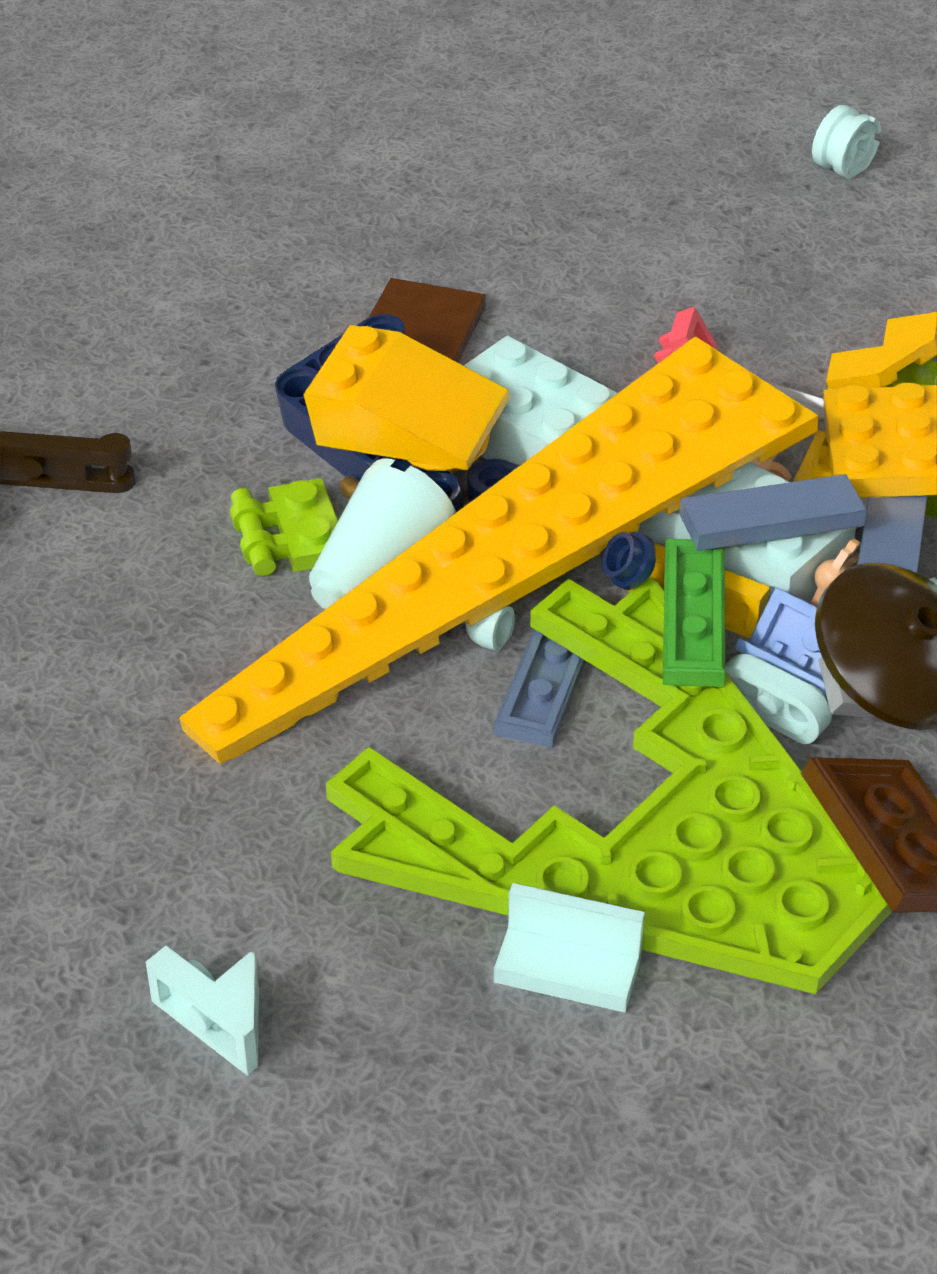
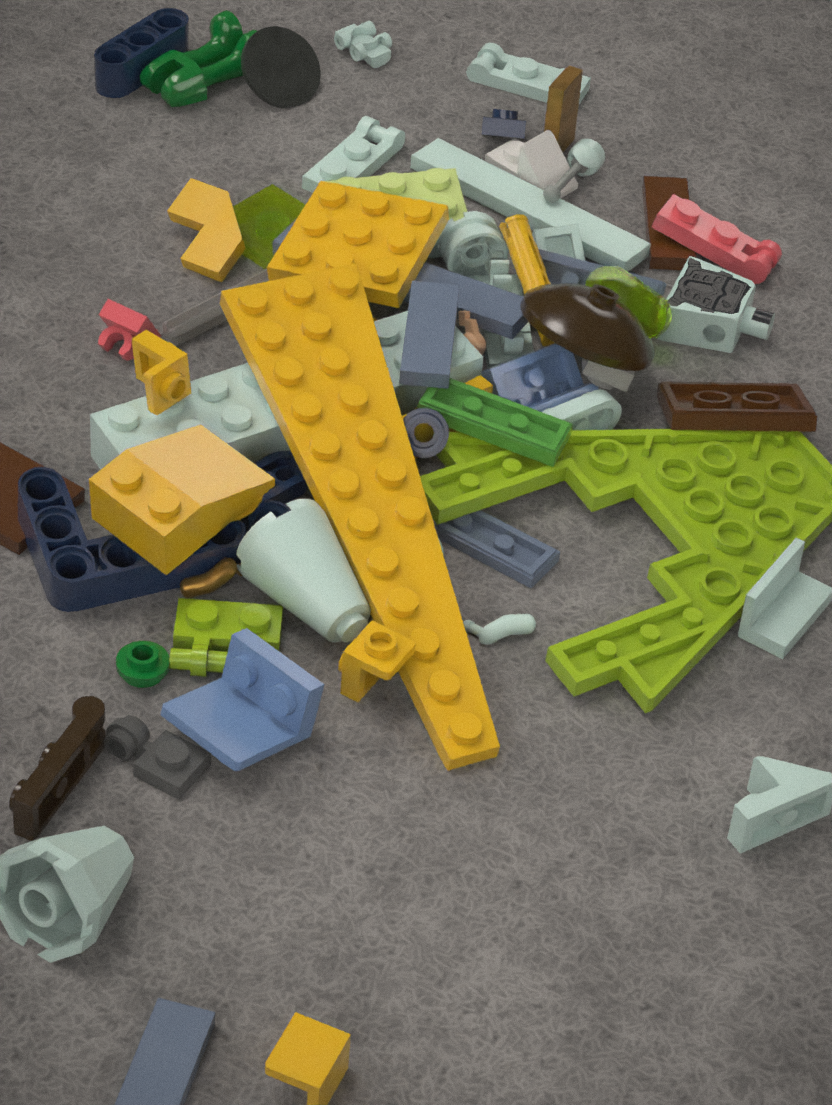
camera: 75 degrees left, 0 degrees up
(108, 531) = (166, 763): none -> dark grey plate
(169, 551) = (254, 707): none -> medium blue bracket
(222, 478) = (142, 663): none -> green plate
(275, 611) = (371, 656): none -> yellow bracket
(411, 721) = (504, 626): none -> light aqua piece
(558, 347) = (162, 370): none -> yellow bracket

